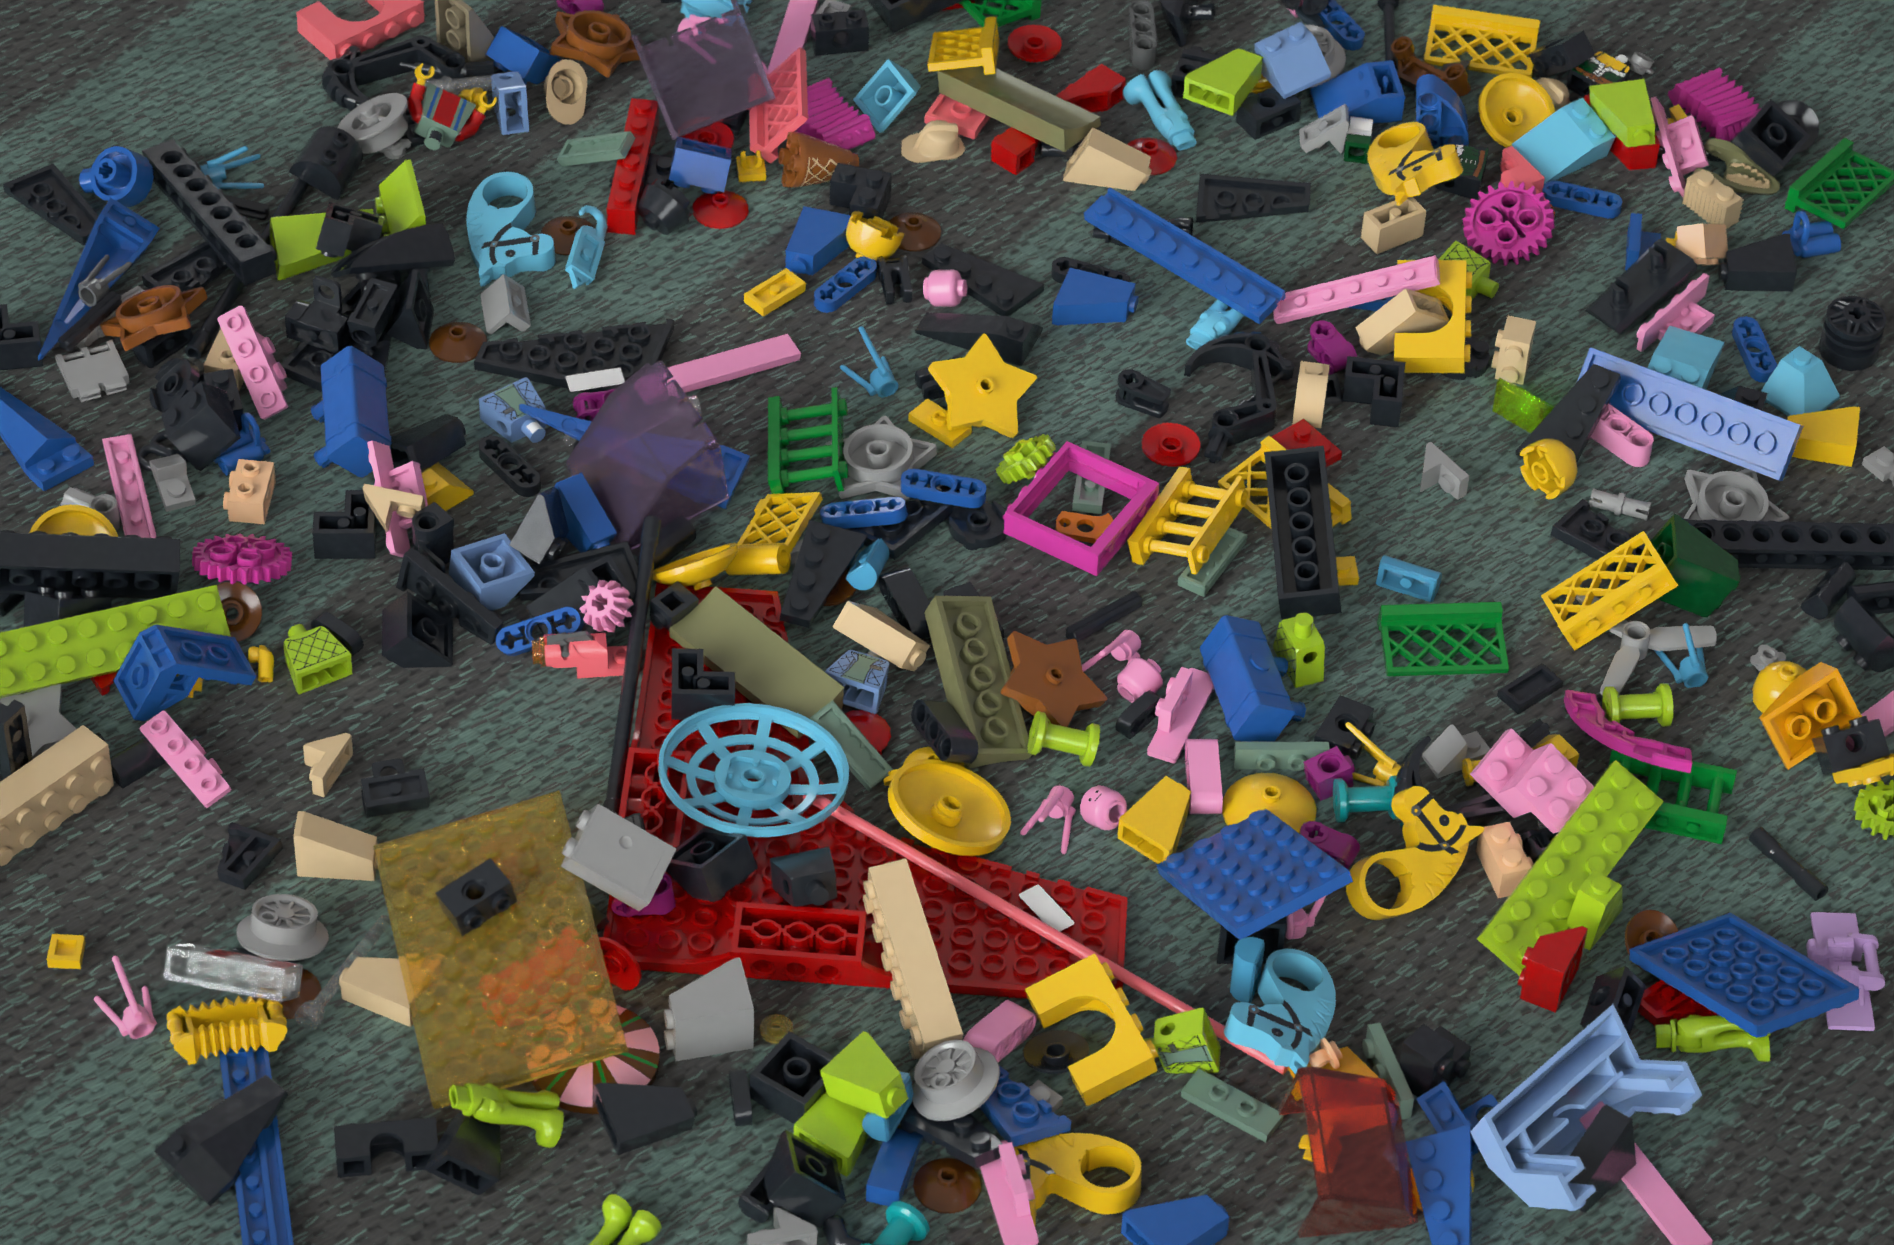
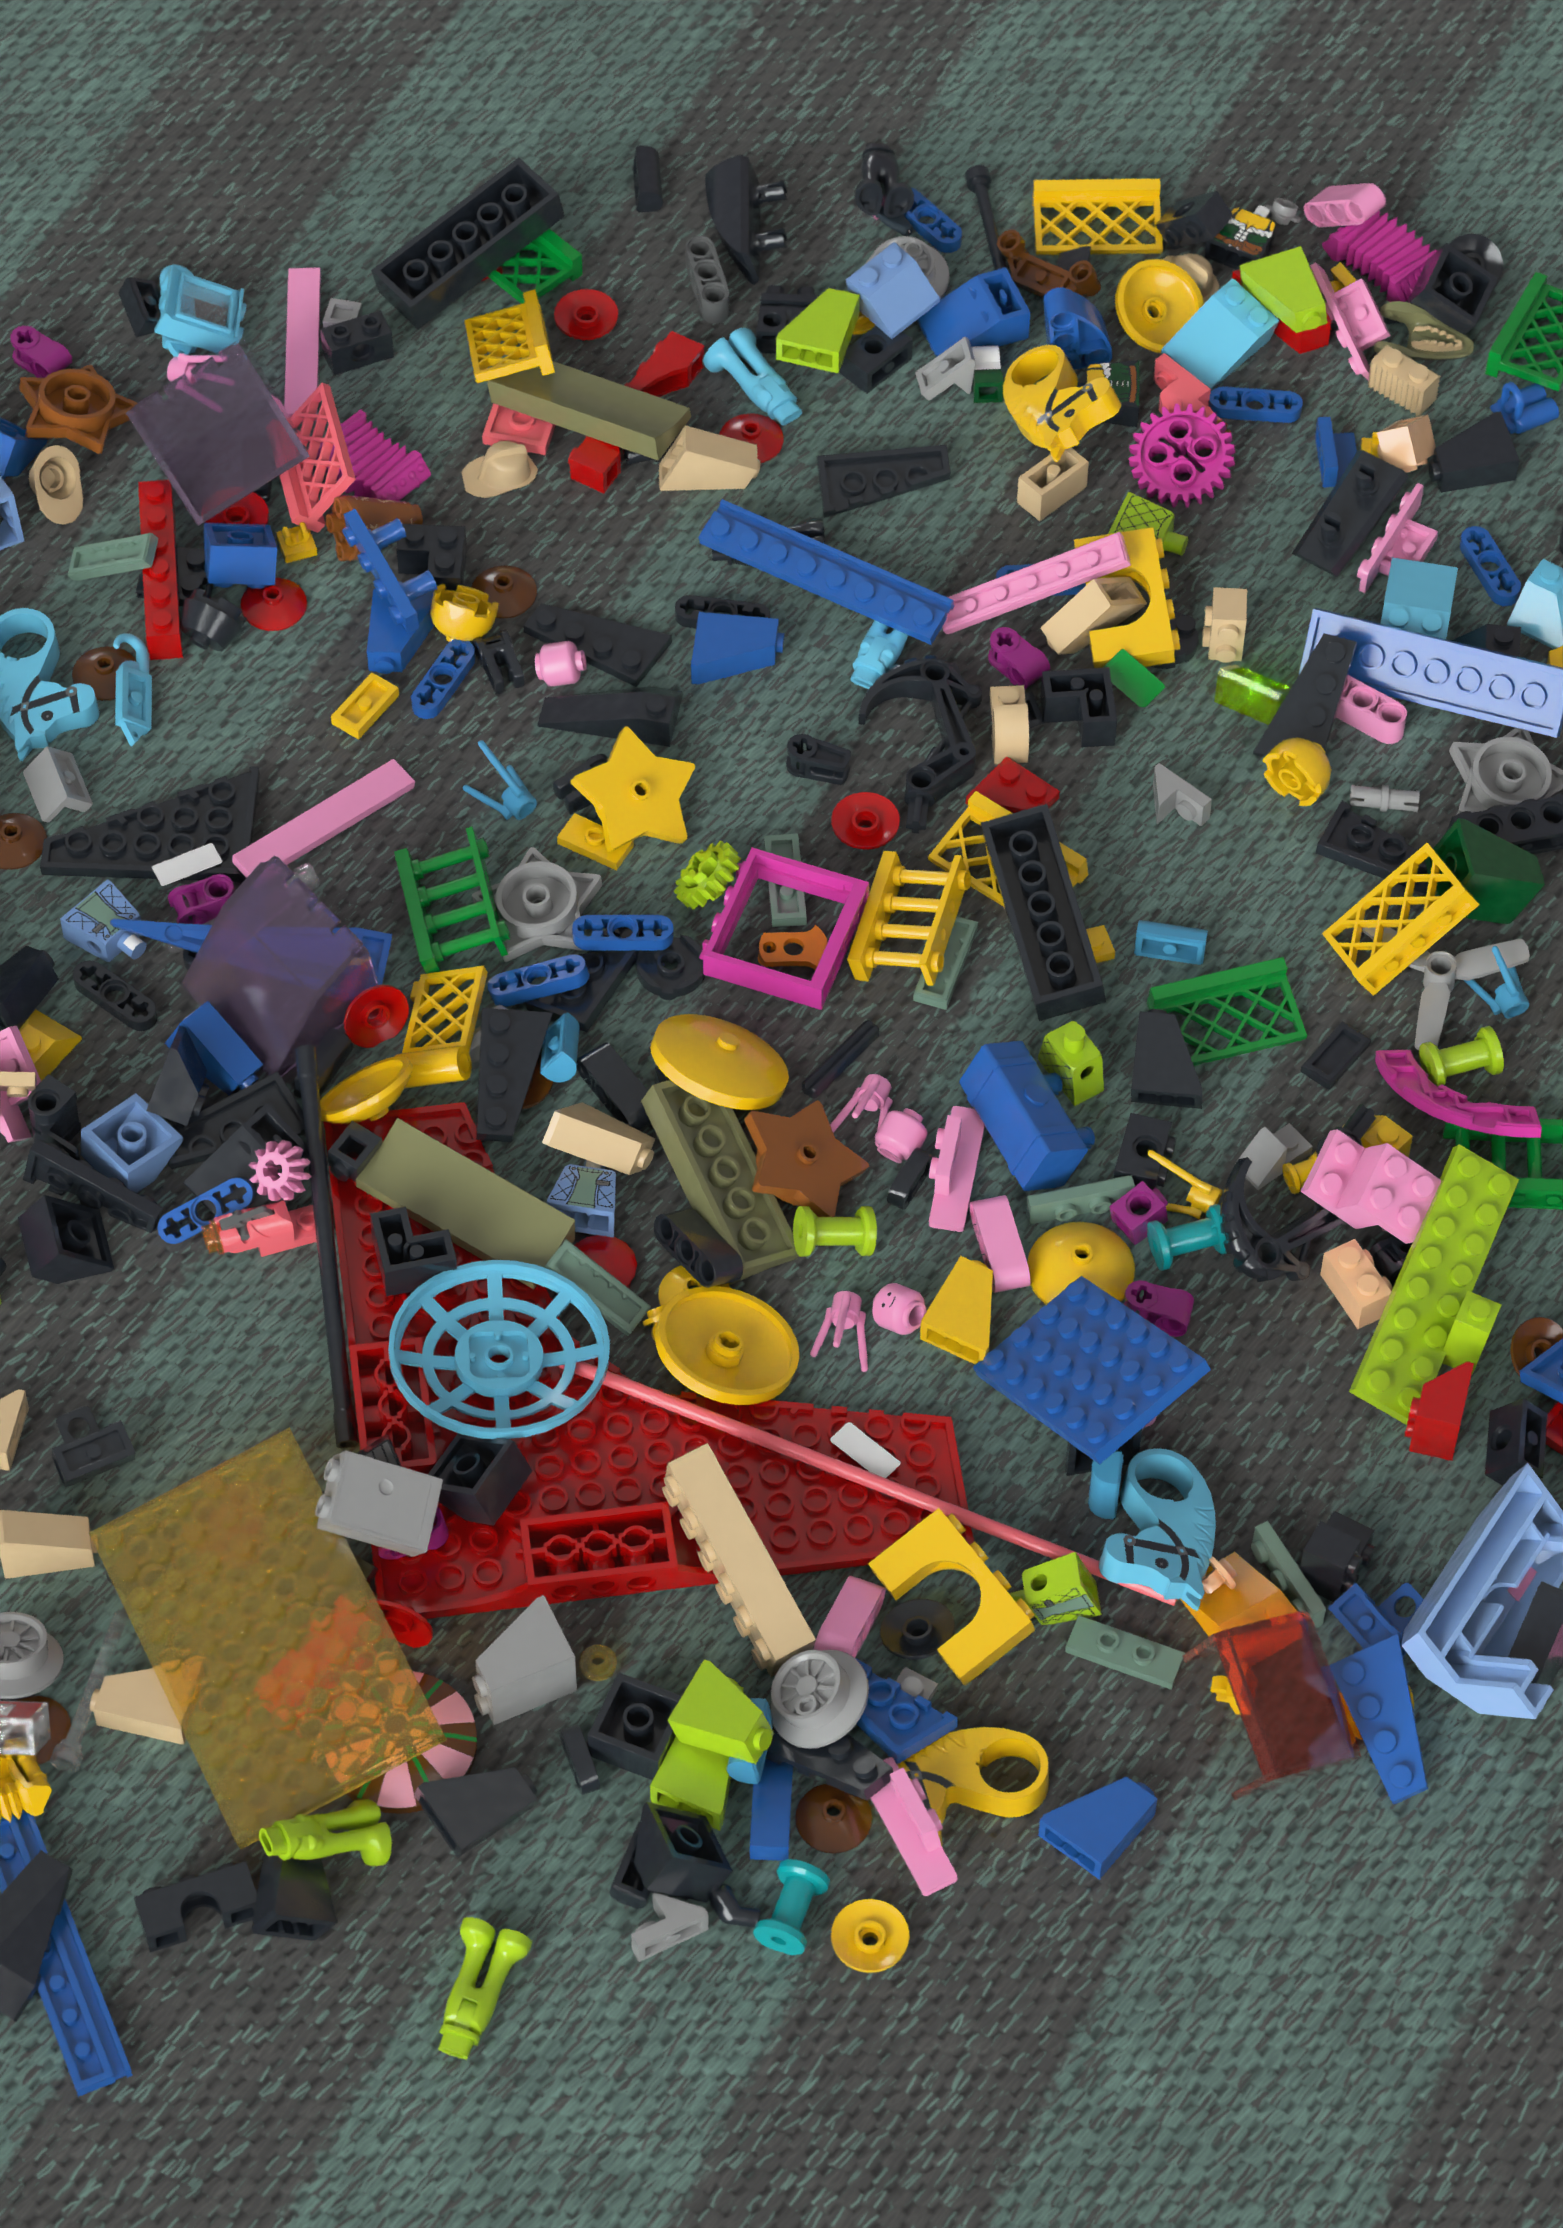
camera: 10 degrees left, 10 degrees up
(476, 897) = (231, 1565): black brick -> none
(726, 522) = (376, 1015): none -> red dish
(804, 877) = (590, 1474): black torso -> none
(806, 179) = (386, 584): none -> blue plate
(886, 94) = (433, 417): medium azure slope -> none
(998, 595) = (719, 1062): none -> yellow dish
(1377, 666) = (1163, 1064): none -> black slope
(1425, 378) = (1134, 678): none -> green sticker
(1432, 856) = (1277, 1303): yellow animal -> none
(1692, 63) = (1344, 205): none -> bright pink beam

